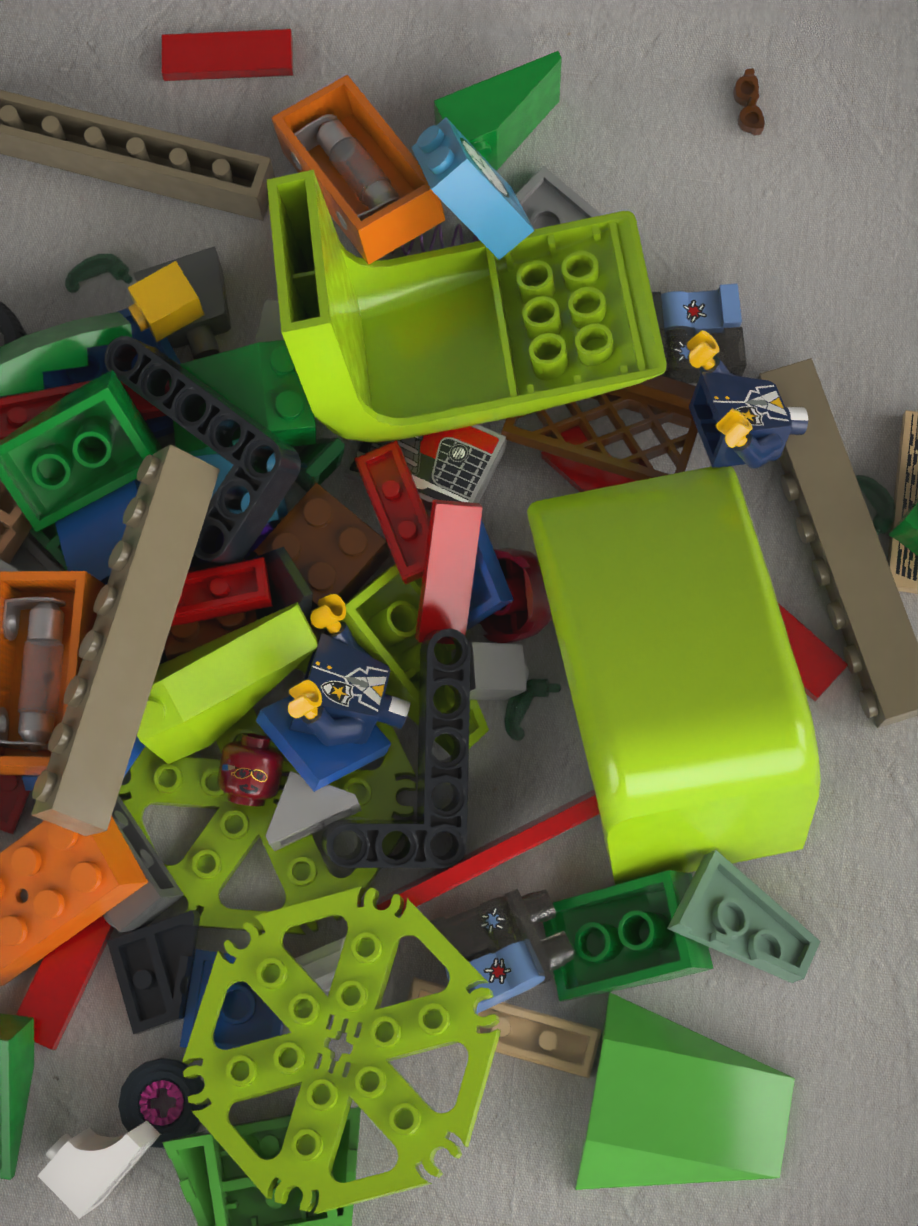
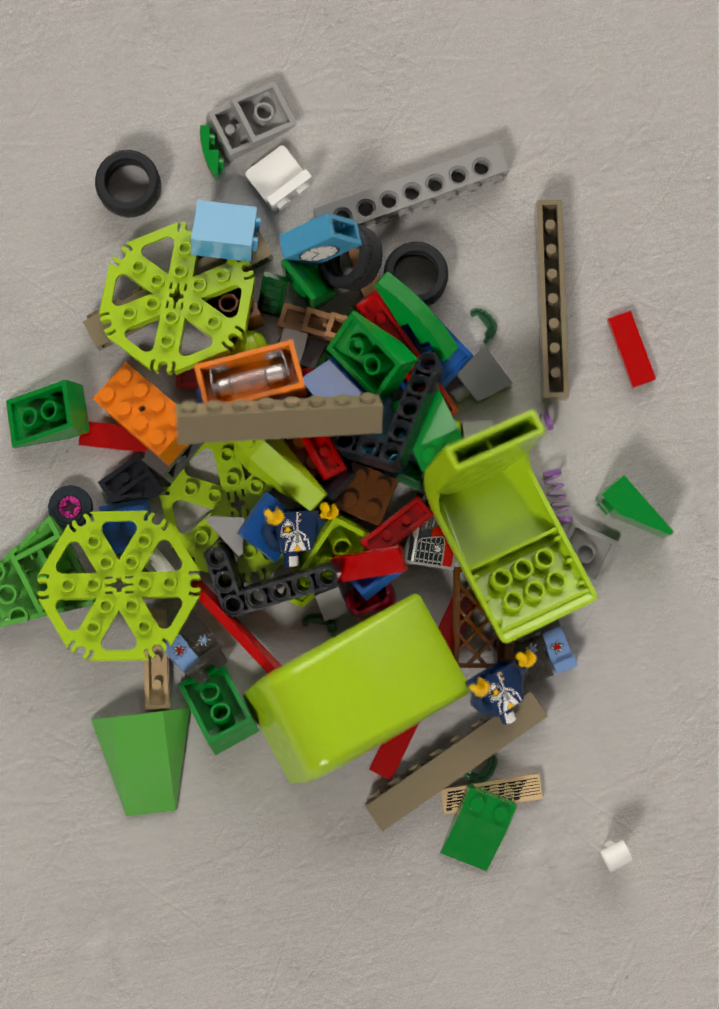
camera: 65 degrees right, 10 degrees up
(92, 1165) = (30, 484): white arch -> none
(164, 302) = (469, 369): yellow brick -> none
(250, 770) = (240, 496): dark red head -> none
(361, 168) = (578, 445): orange piece -> none
(471, 188) = (578, 511): dark azure brick -> none
(742, 921) = (241, 763): sand green wing -> none
(747, 94) = (697, 638): reddish brown piece -> none

